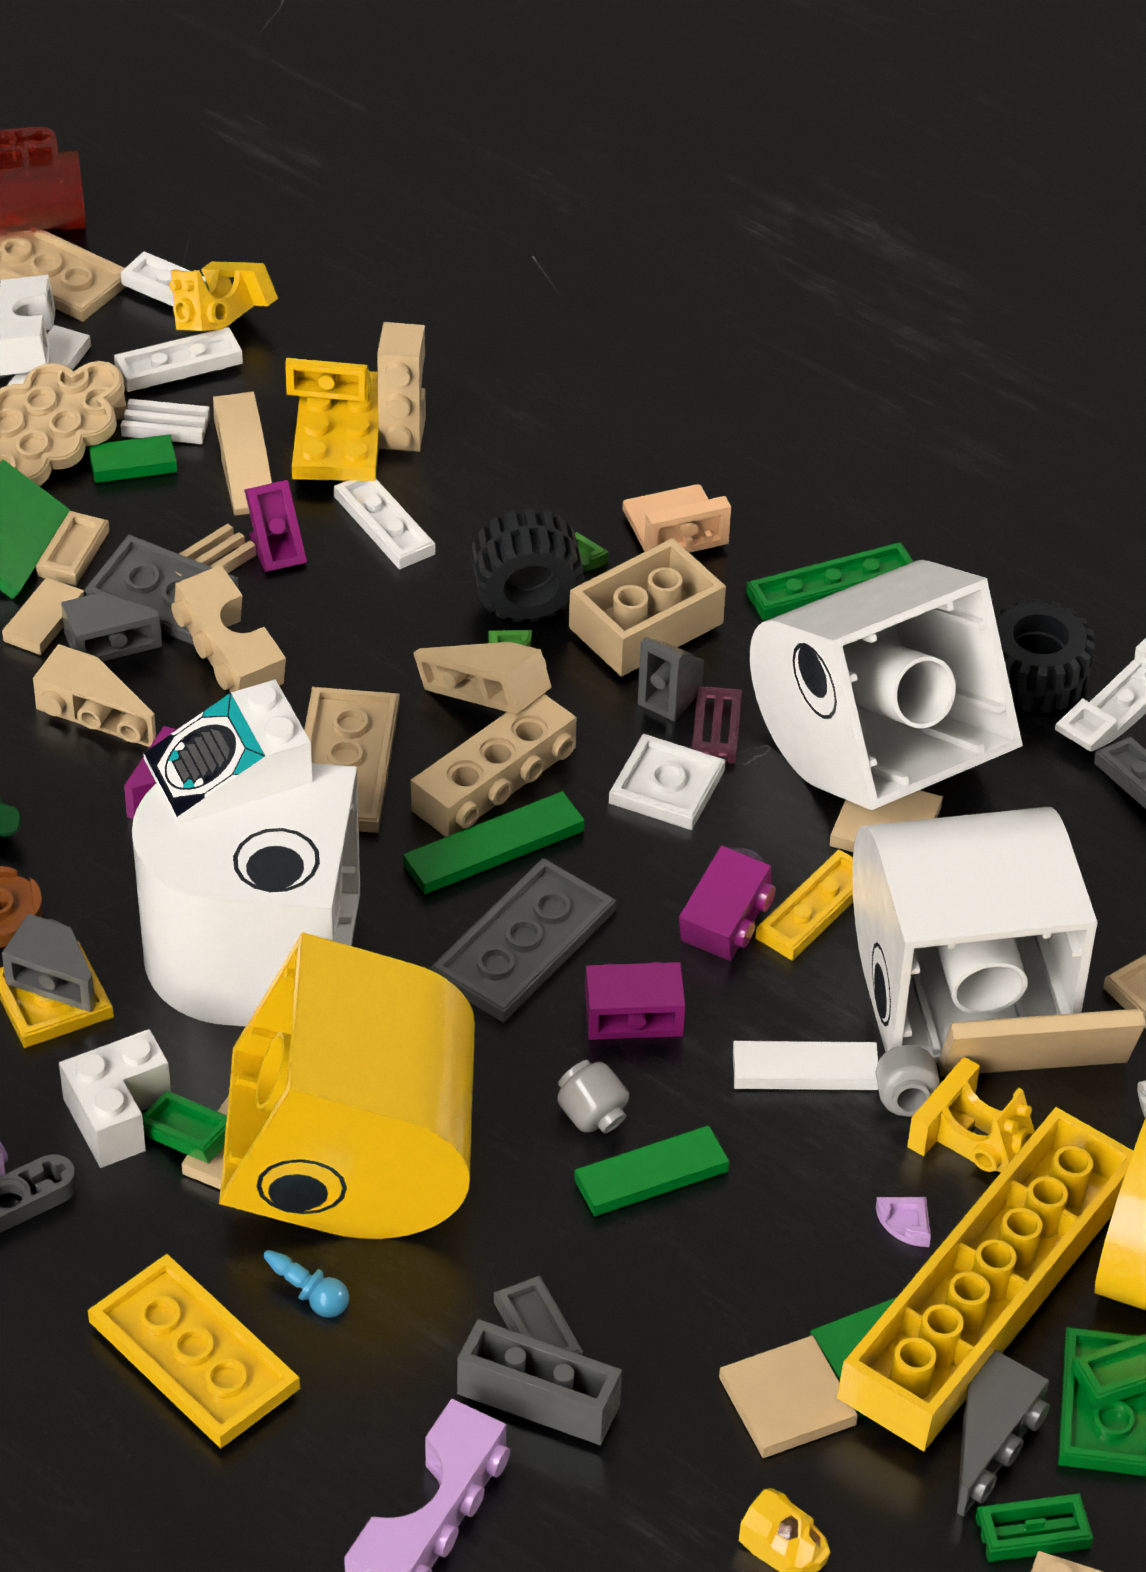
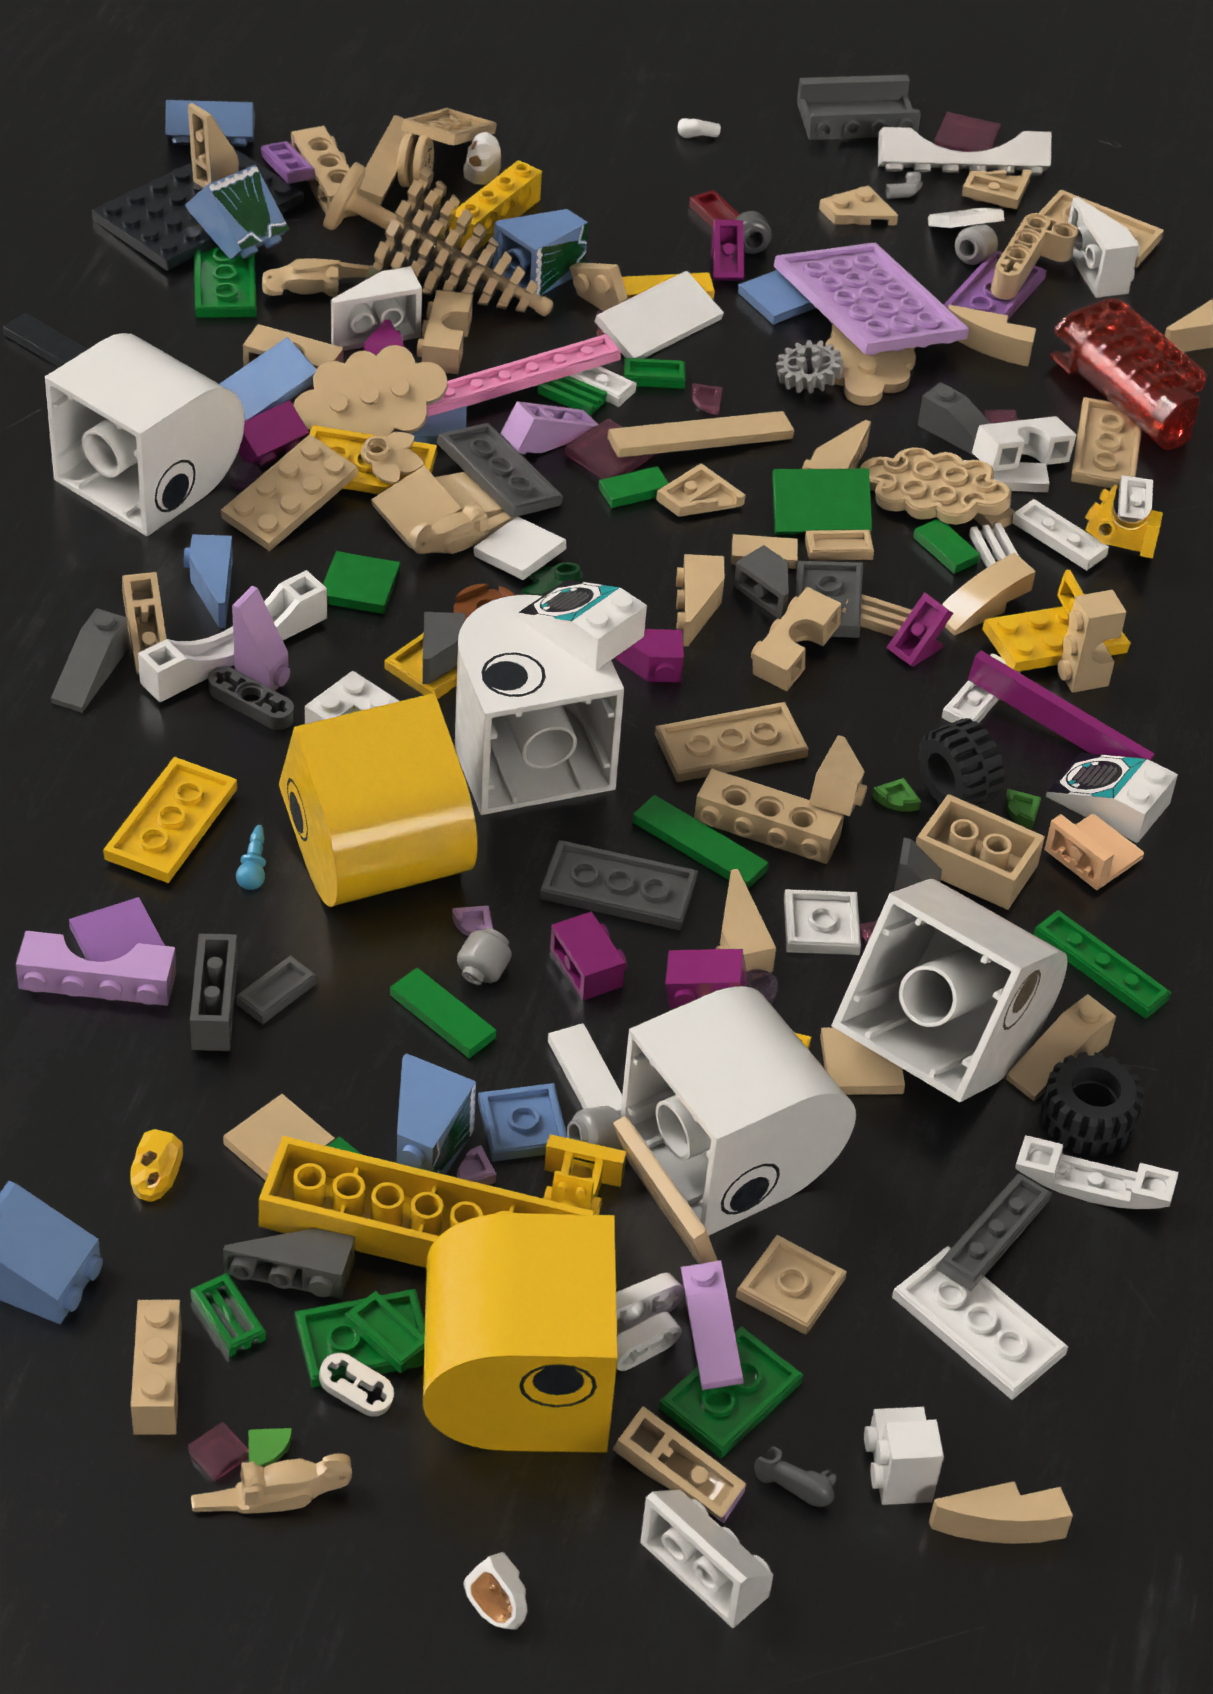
camera: 65 degrees right, 0 degrees up
(370, 1470) = (114, 930): none -> medium lavender tile
(474, 466) = (1052, 710): none -> magenta tile
(519, 1094) = (472, 918): none -> lavender tile
(600, 468) = (1117, 789): none -> white slope
(655, 849) = (745, 928): none -> tan slope
(850, 1226) = (433, 1115): none -> medium blue slope
(851, 1149) = (520, 1120): none -> medium blue tile

